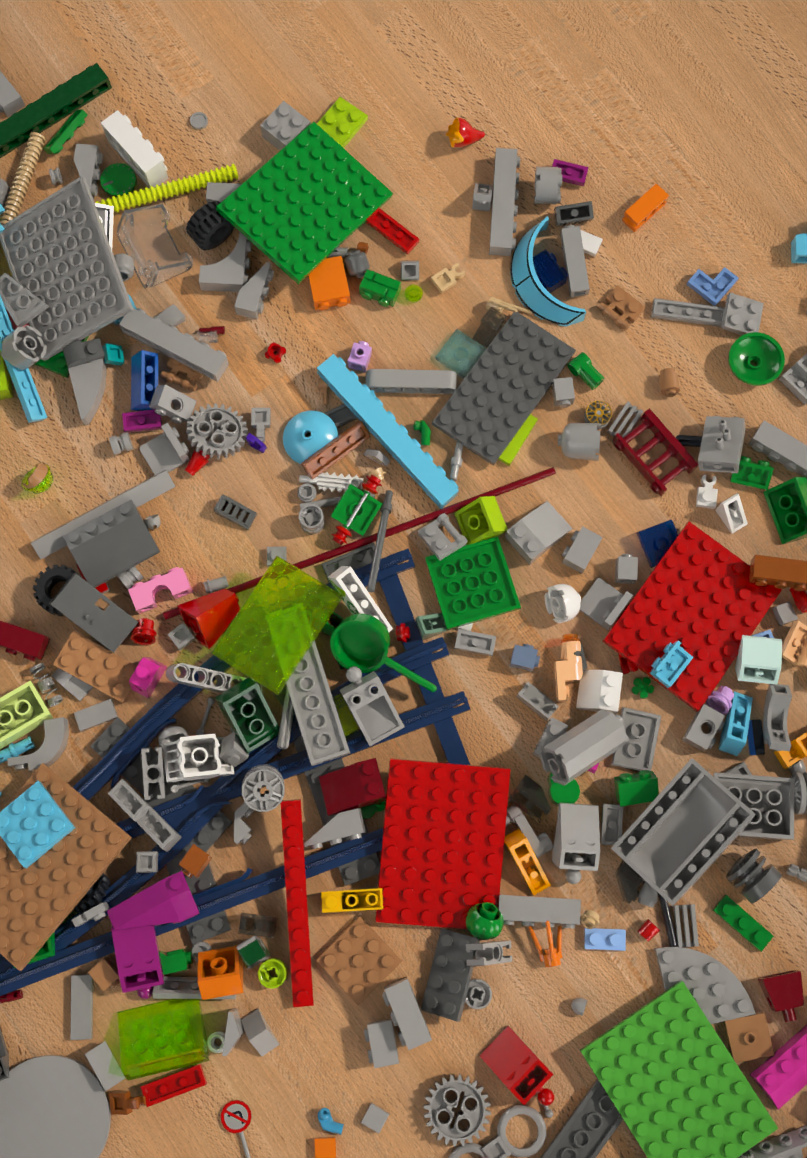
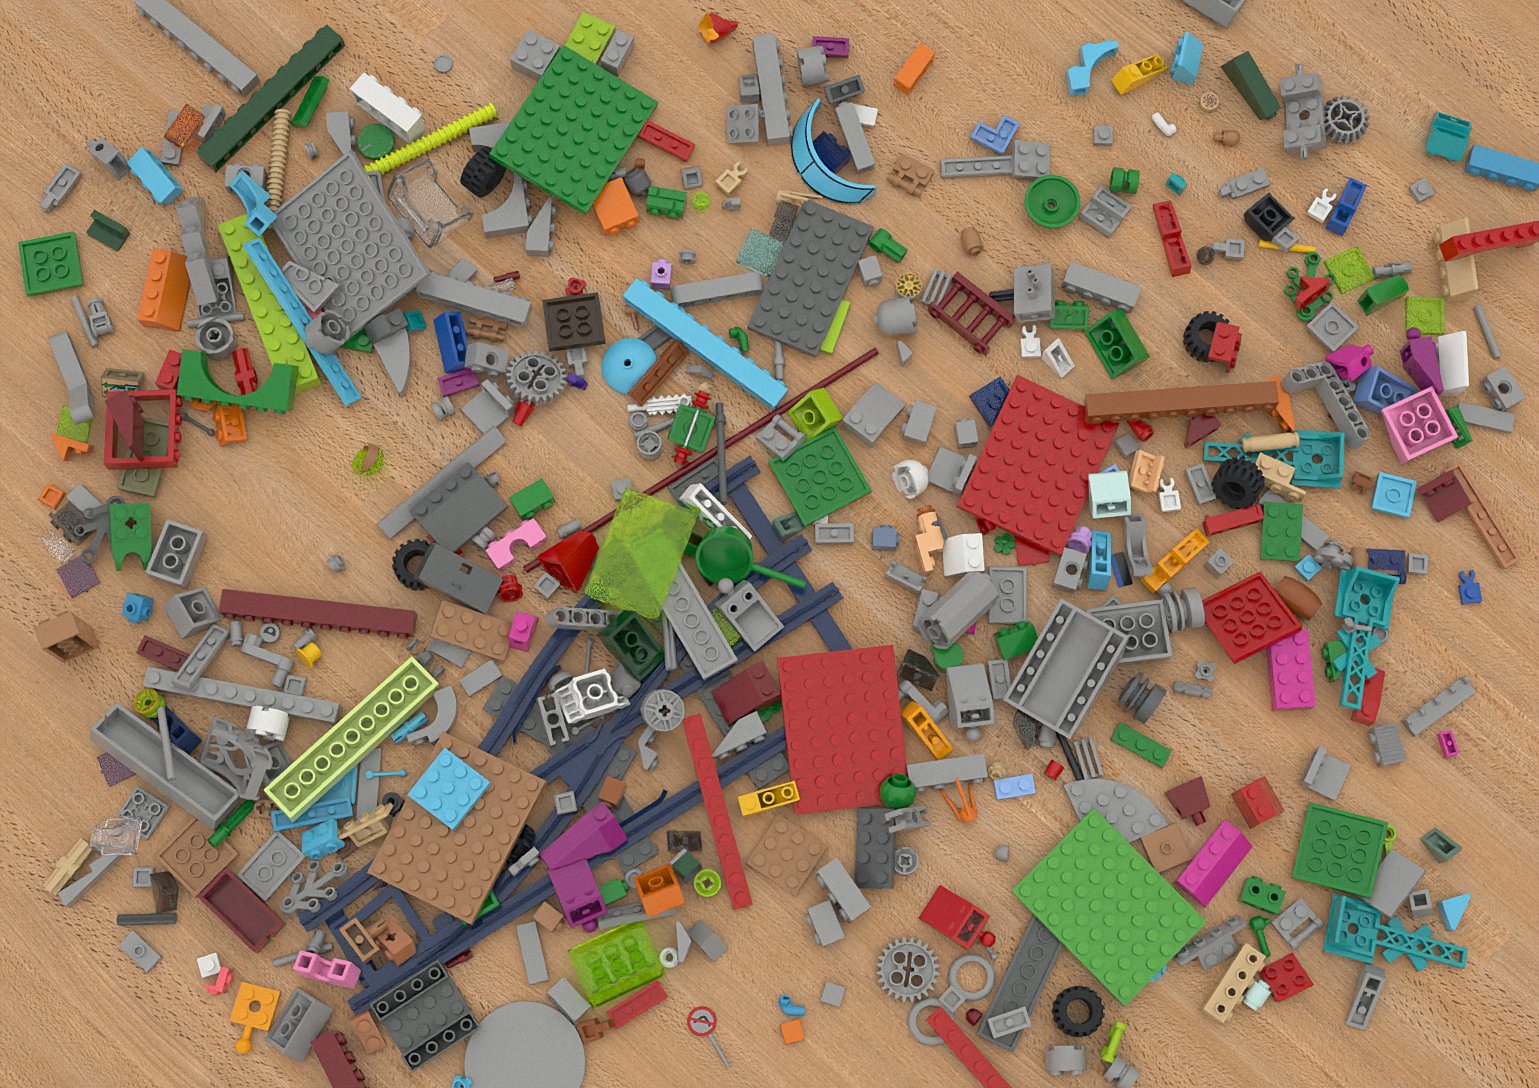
camera: 15 degrees left, 0 degrees up
(144, 815) = (553, 760): light grey slope -> none
(186, 549) = (532, 500): none -> green brick
(225, 514) = (562, 458): dark grey slope -> none
(265, 385) = (573, 322): none -> dark brown plate
(364, 139) = (617, 53): none -> light grey brick
(389, 344) = (687, 257): none -> light grey bush
(402, 632) = (762, 538): red plate -> none
(443, 302) = (731, 204): none -> light grey tile
(470, 227) = (743, 123): none -> light grey hinge
(581, 478) = (904, 353): none -> light grey slope
(667, 702) = (1029, 553): none -> red piece
(671, 664) = (1026, 516): medium azure bracket -> none

